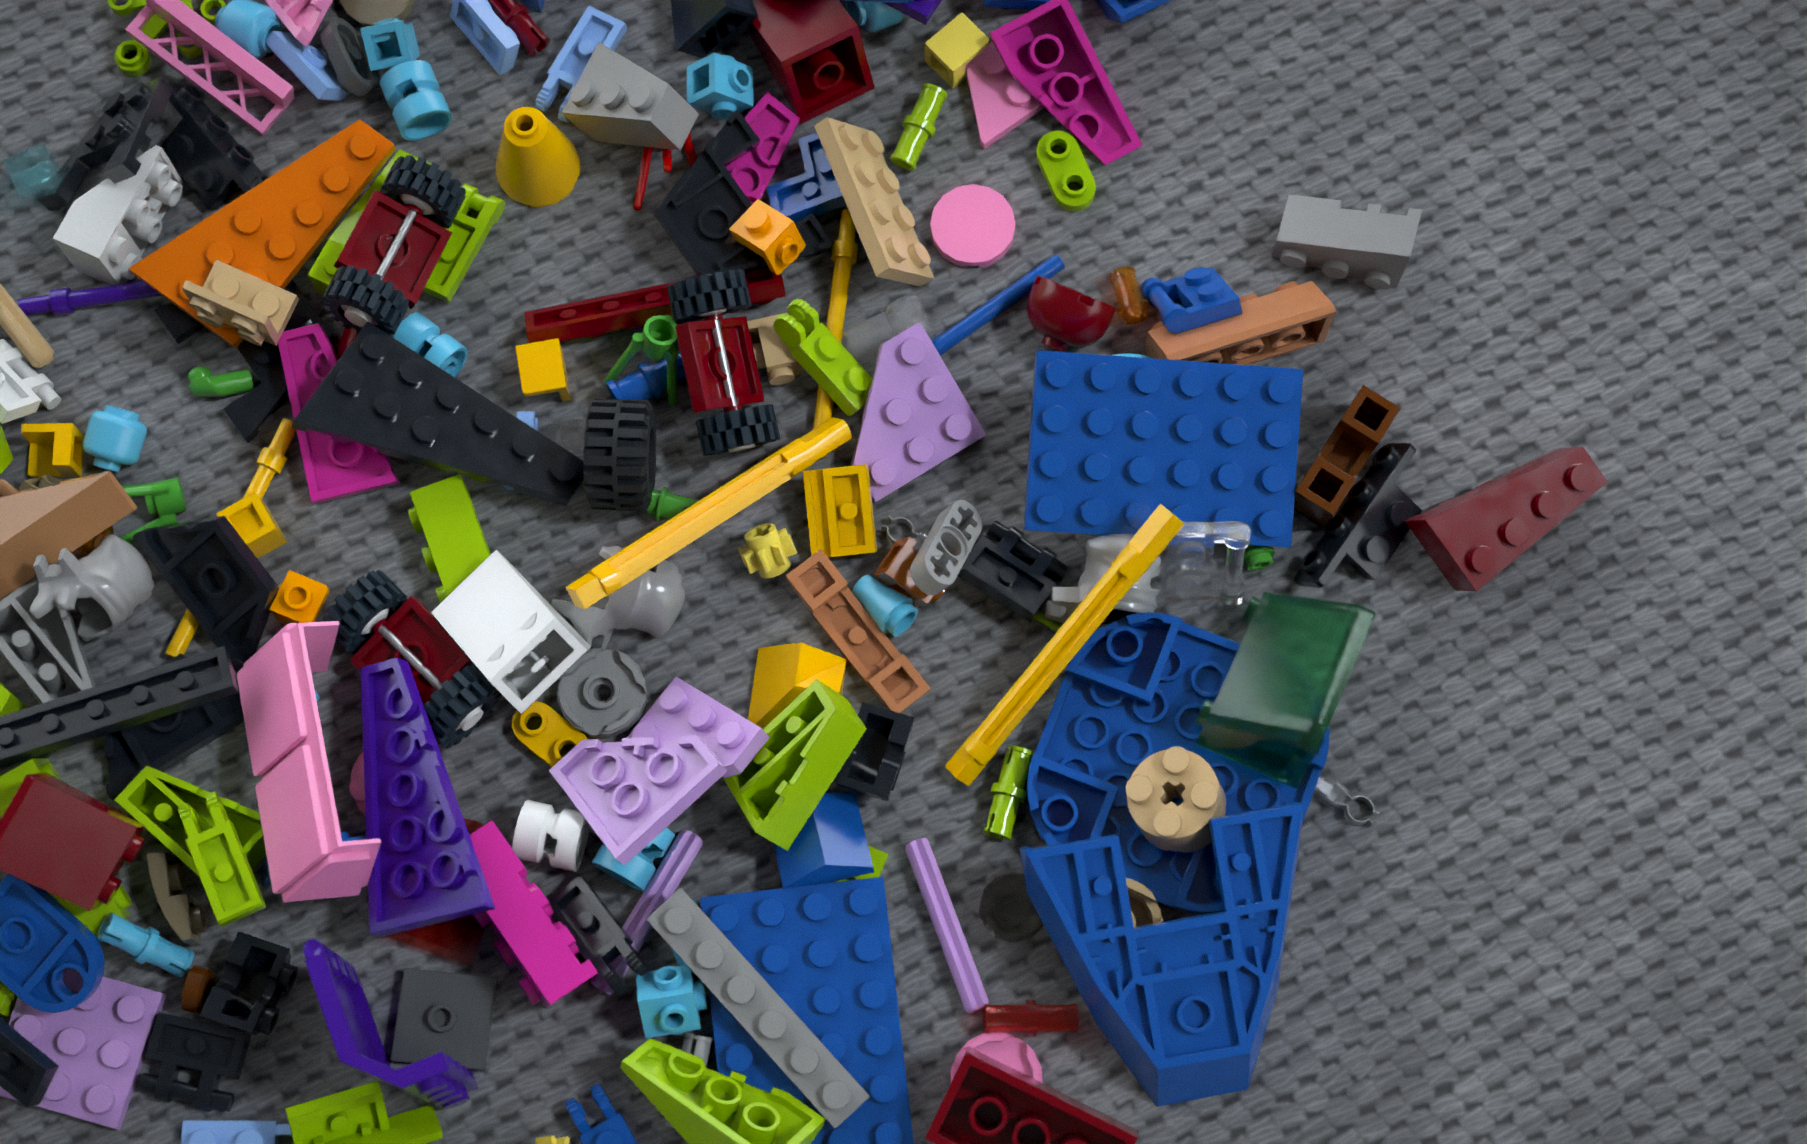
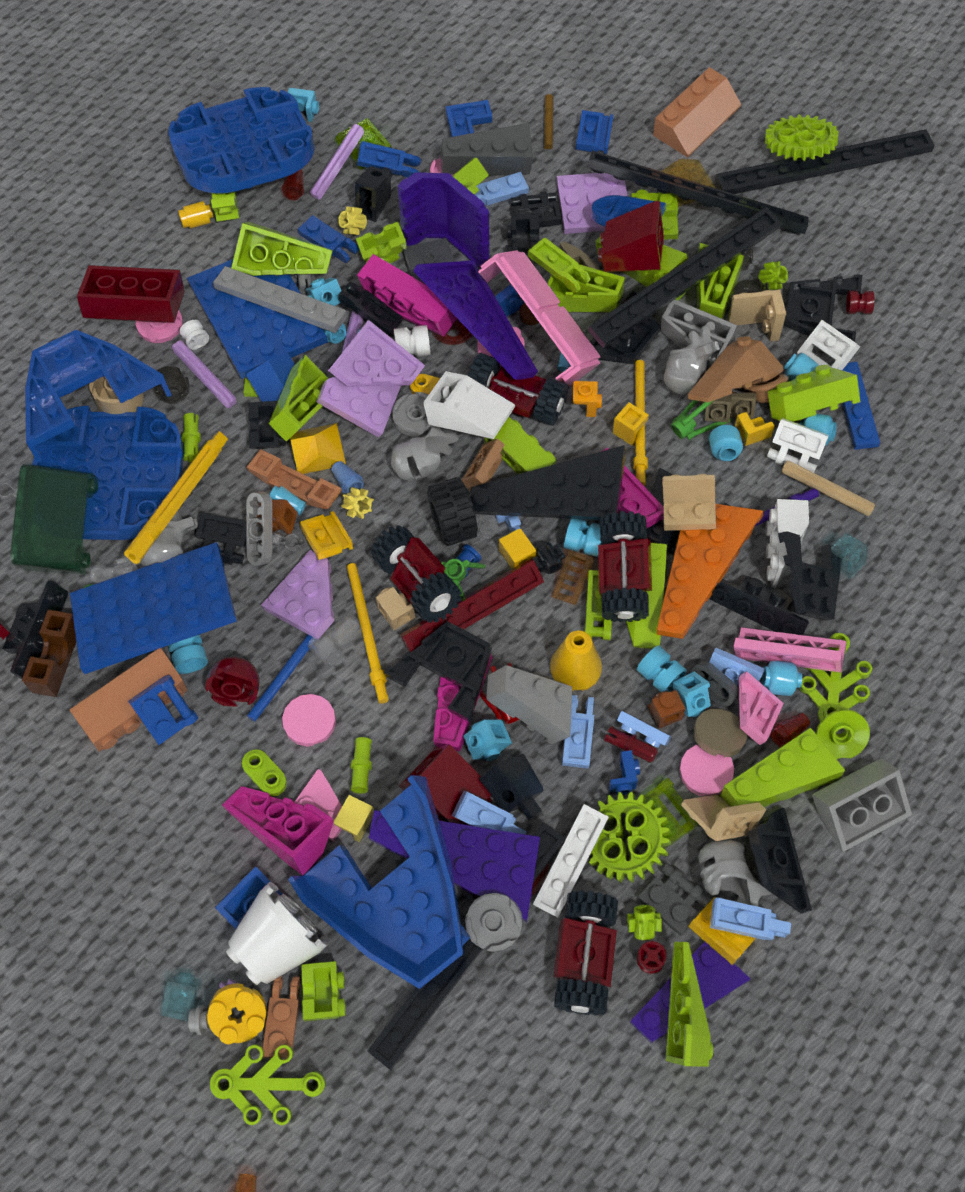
camera: 160 degrees right, 10 degrees down
(145, 945) = (582, 236): medium azure pin -> none
(197, 988) = (548, 231): reddish brown tile -> none
(215, 580) = (635, 388): black wing -> none
(438, 42) = (666, 708): none -> dark orange brick
(456, 322) = (579, 558): none -> clear orange slope
(498, 338) = (549, 558): none -> black gear
(518, 1082) = (385, 245): none -> lime cylinder
(534, 530) = (484, 464): none -> medium nougat bracket
(667, 504) = (415, 511): bright green pin -> none
(707, 513) = (389, 496): yellow piece -> none
(767, 610) = (346, 477): none -> medium blue cone
(769, 235) = (420, 651): light orange bracket -> none
(811, 191) = (403, 706): blue plate -> none
(823, 356) = (360, 604): lime hinge -> none
(875, 202) = (368, 699): tan plate -> none
(939, 1011) = (194, 334): none -> white wheel
(1030, 1018) = (151, 346): clear red pin -> none
(1128, 295) = (200, 705): clear orange pin -> none
(1169, 776) = (96, 440): tan brick -> none
(1346, 240) = (77, 780): light grey wedge -> none

